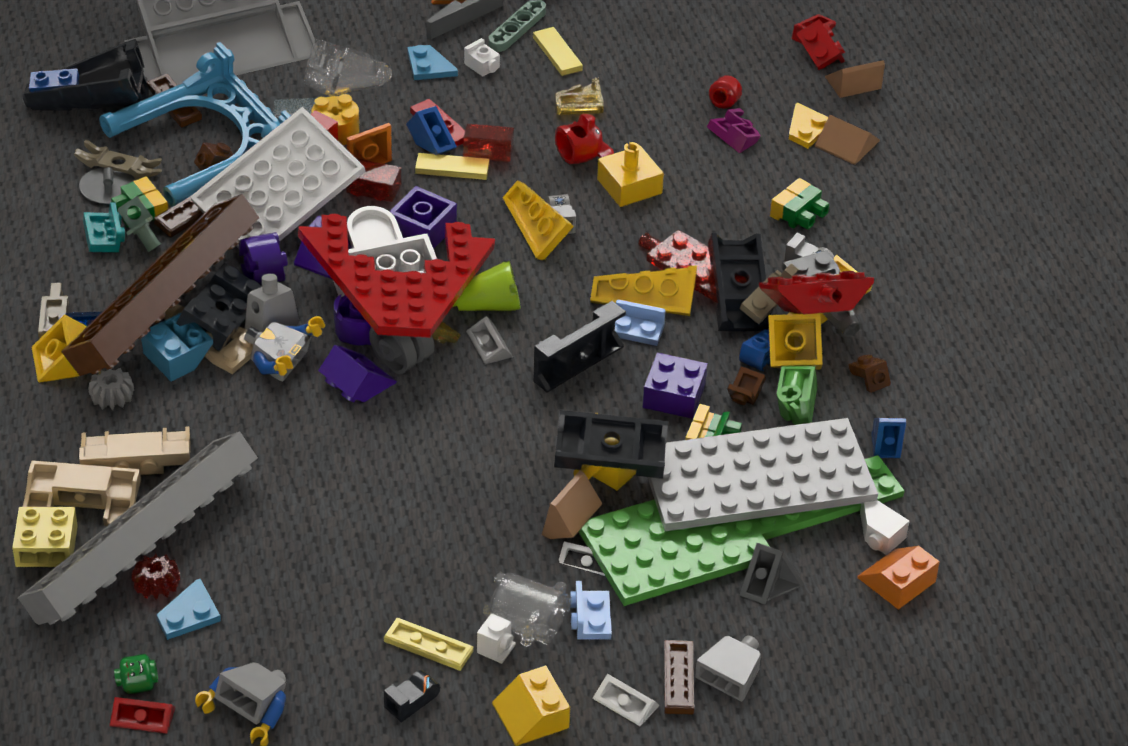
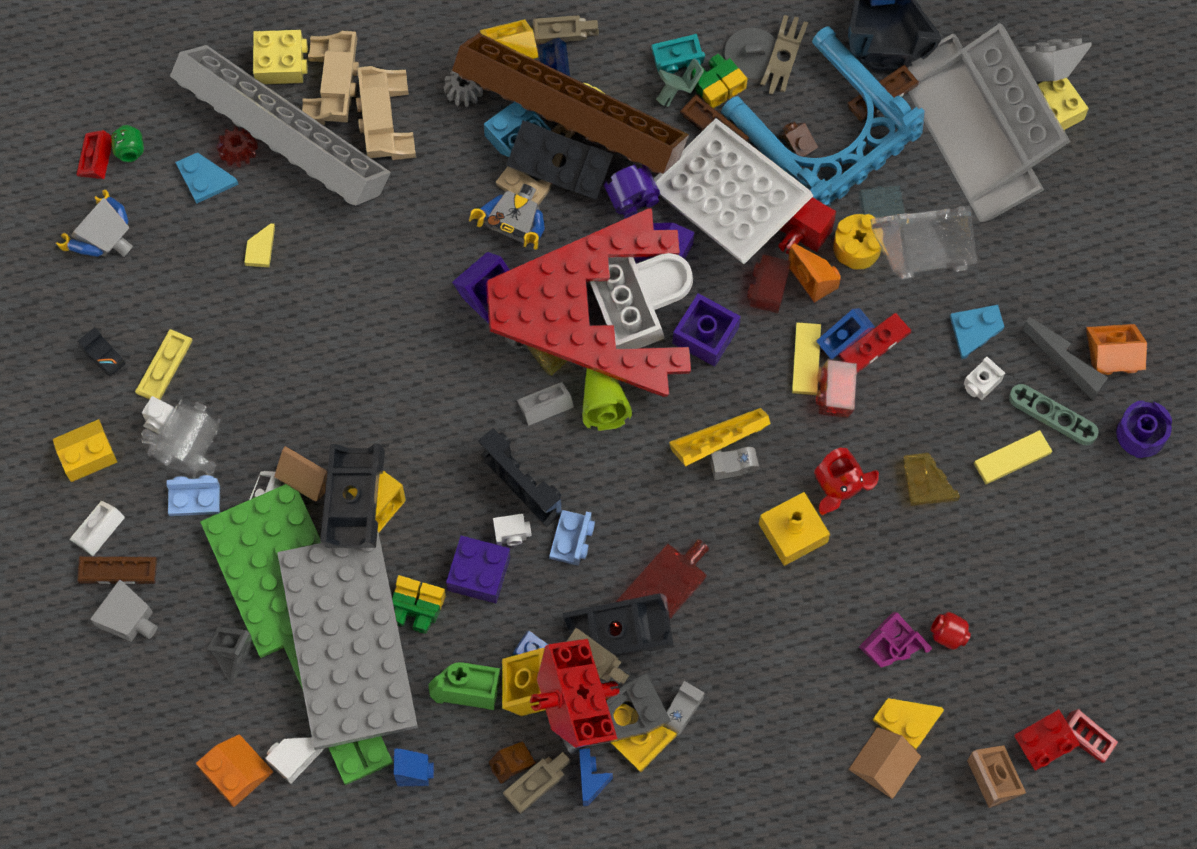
camera: 90 degrees right, 25 degrees up
(271, 304) = (562, 204): light grey torso -> none
(287, 561) = (260, 248): none -> light yellow tile
(632, 364) = (511, 530): none -> white brick
(663, 289) = (615, 548): yellow wing -> none
(746, 386) = (481, 637): reddish brown bracket -> none
(798, 204) = (770, 710): green hips -> none
(885, 317) = (591, 783): none -> blue slope
(898, 360) = (536, 782): none -> dark tan hinge

